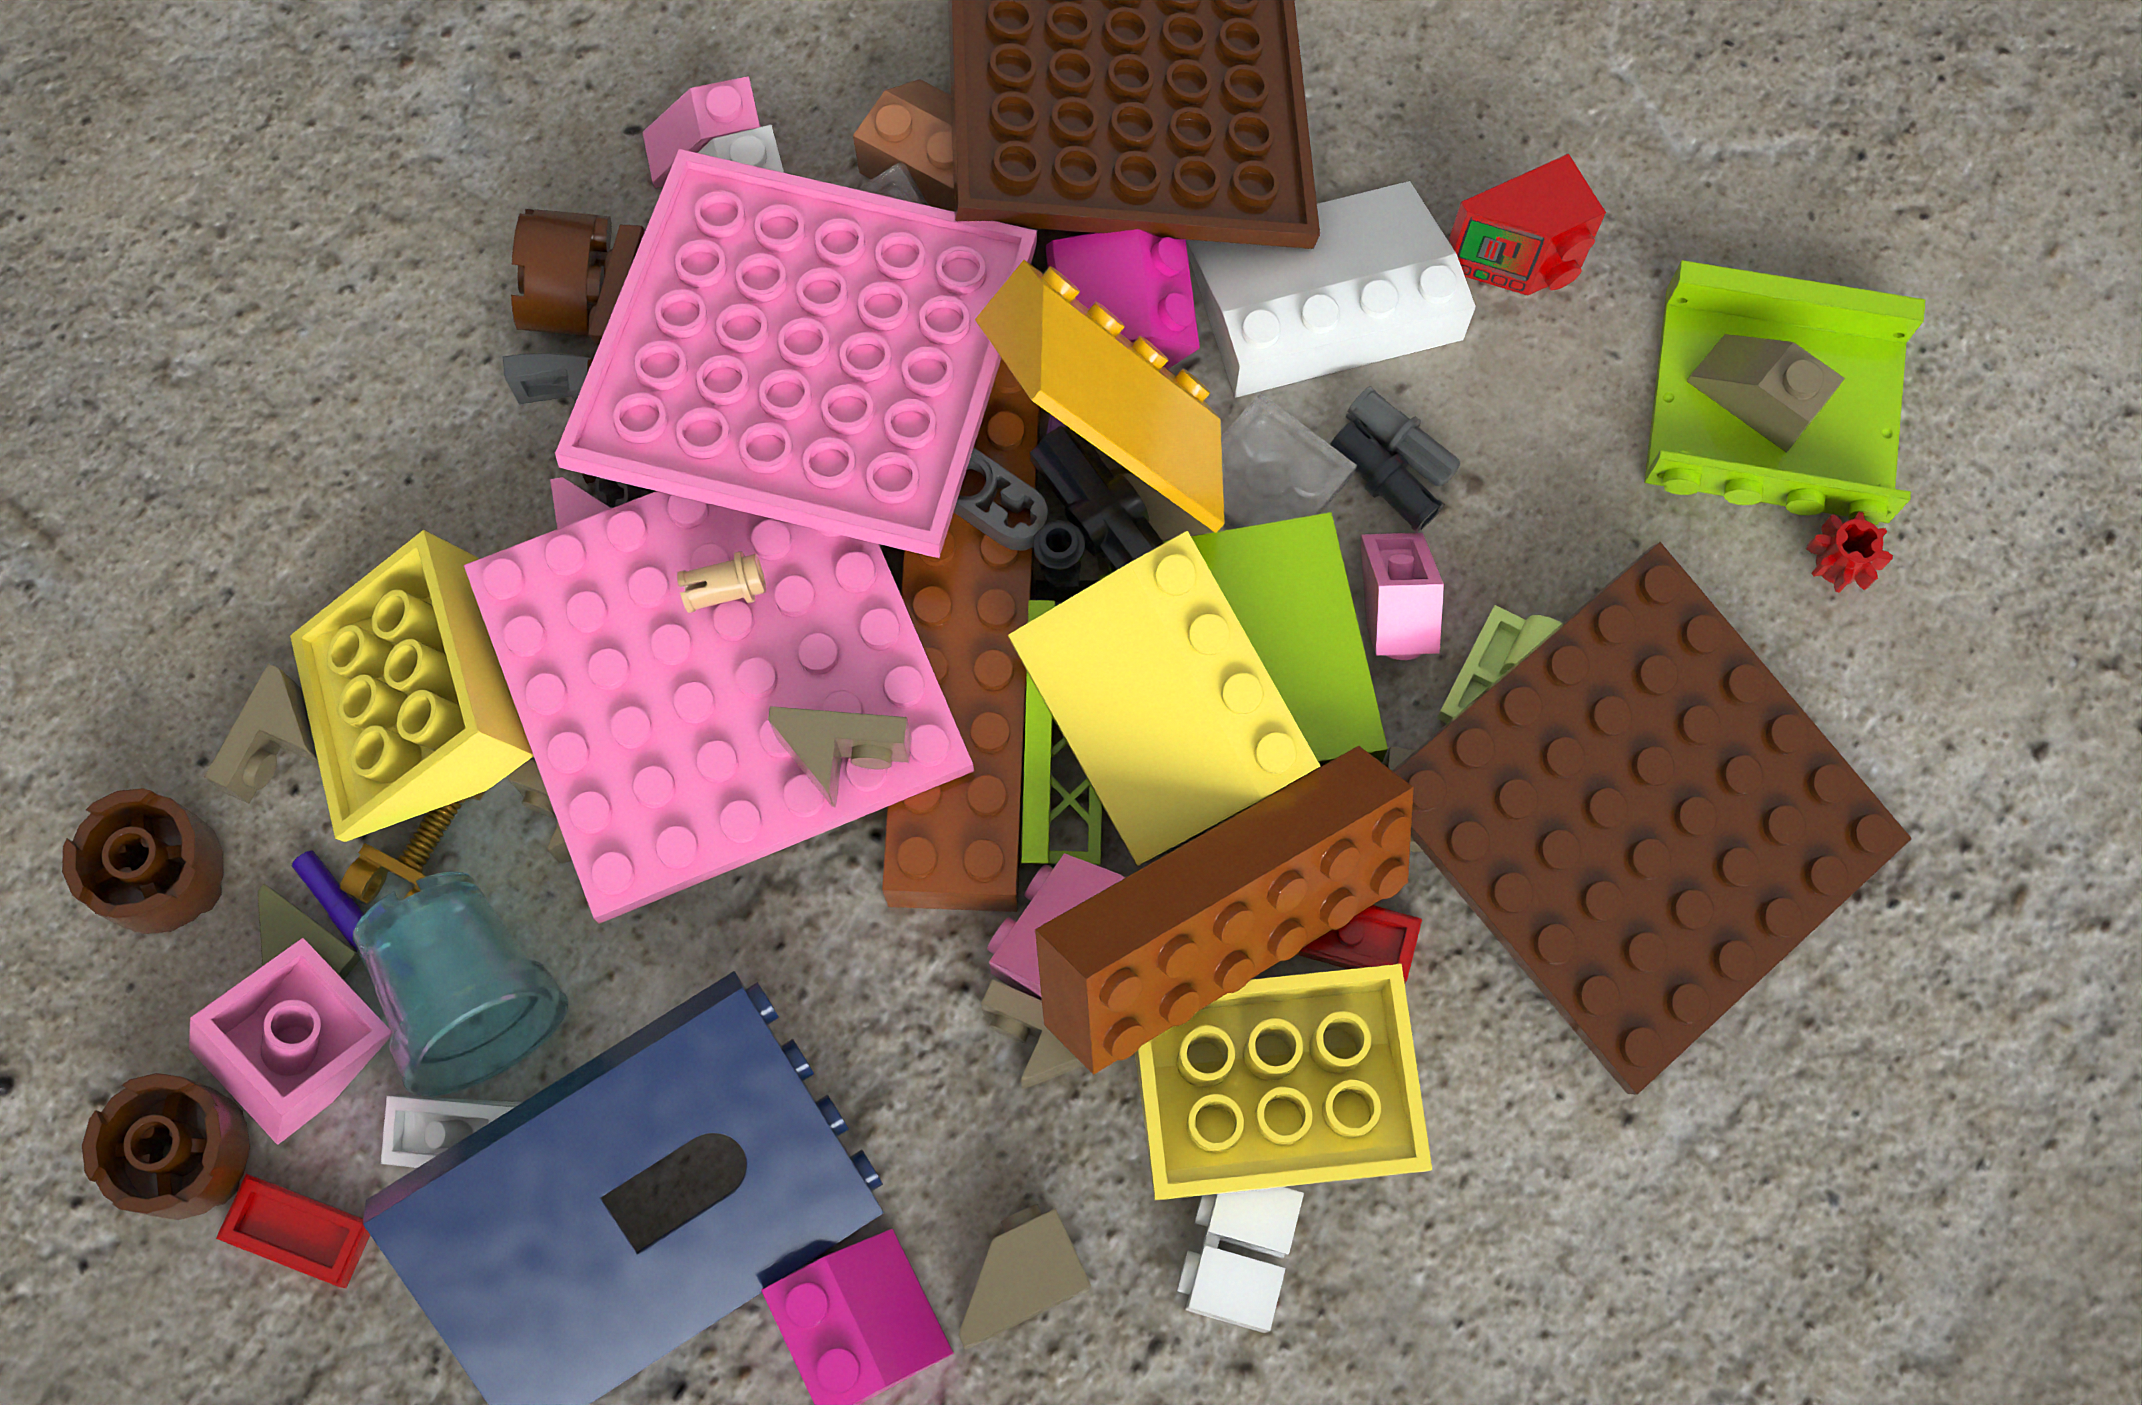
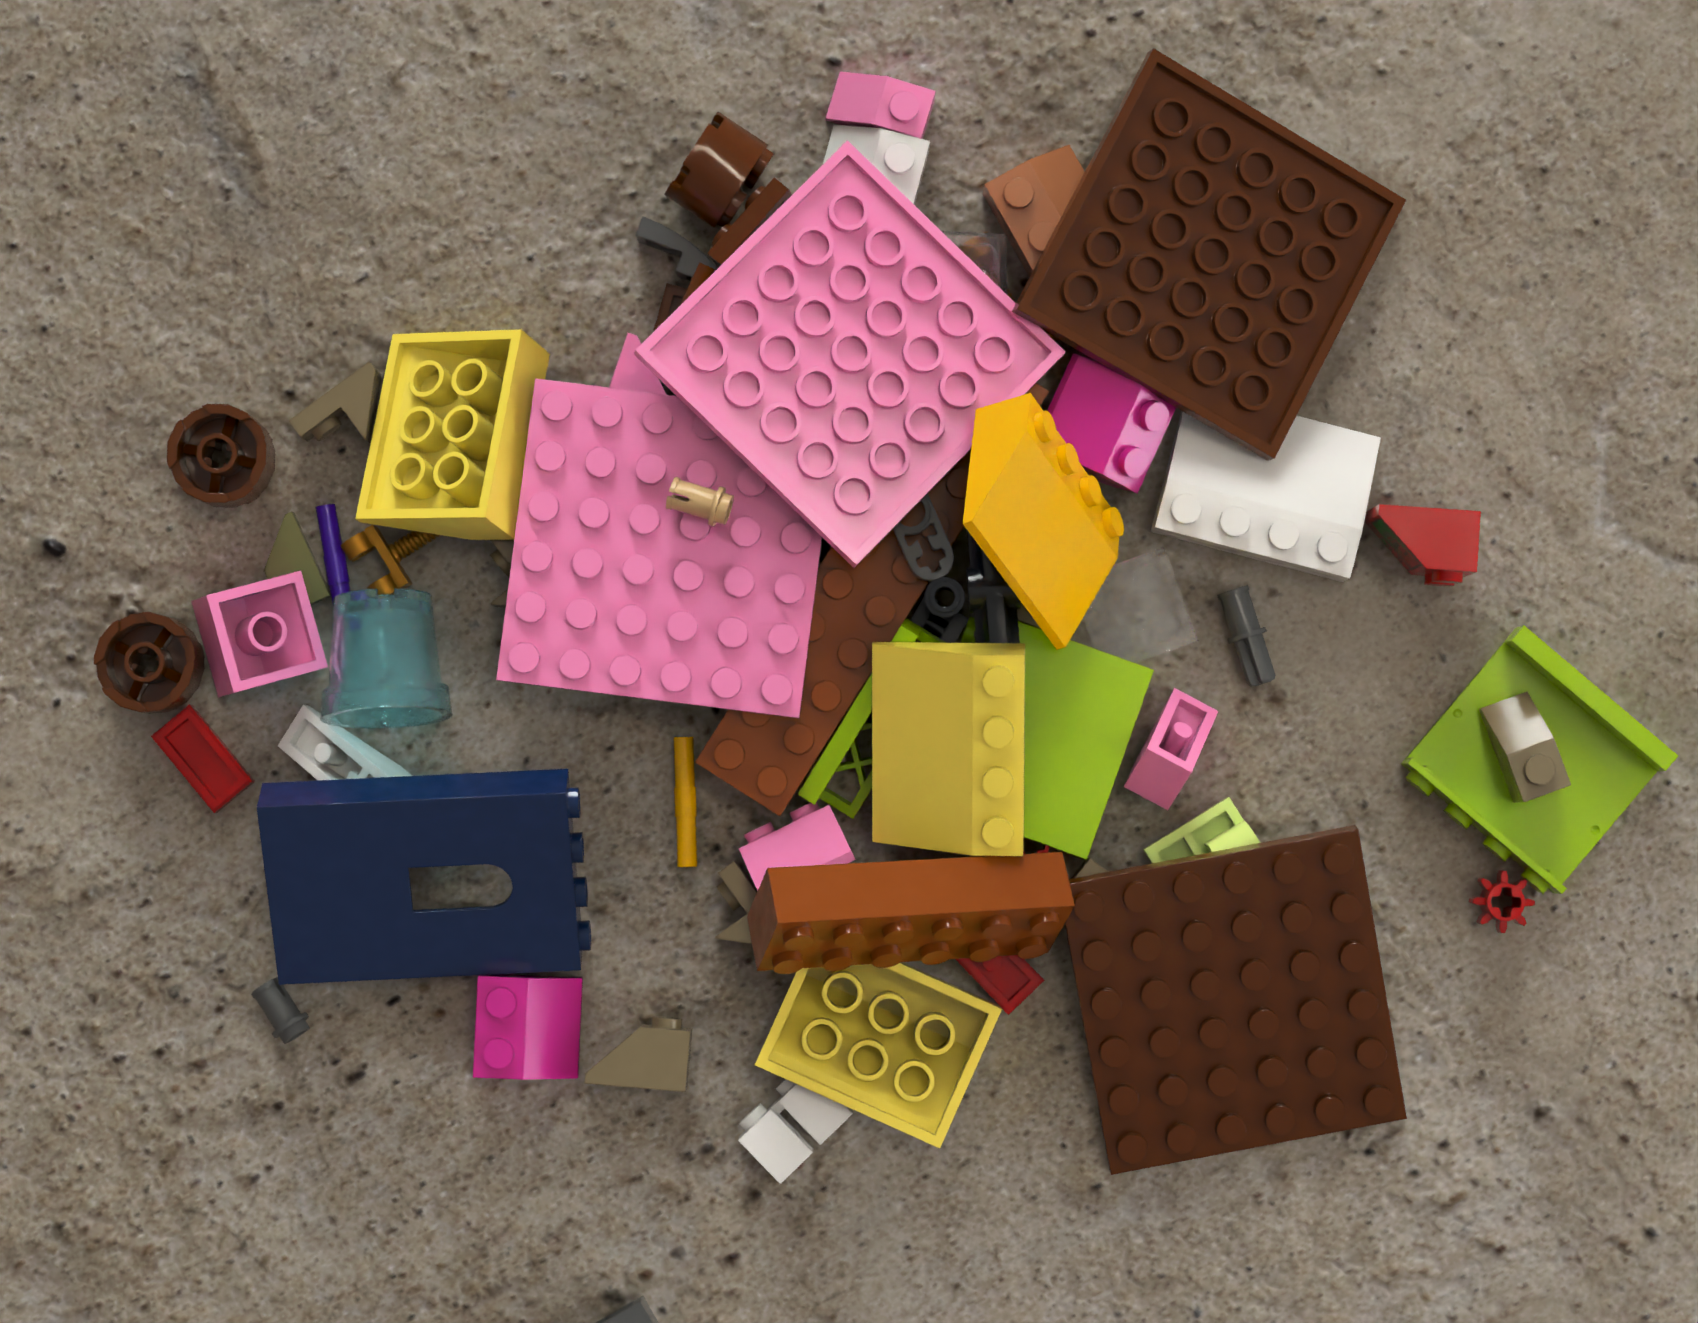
camera: 30 degrees right, 15 degrees up
(822, 738) = (702, 653): dark tan slope -> none
(899, 955) = (685, 802): none -> yellow piece
(1387, 475) = (1216, 657): black pin -> none

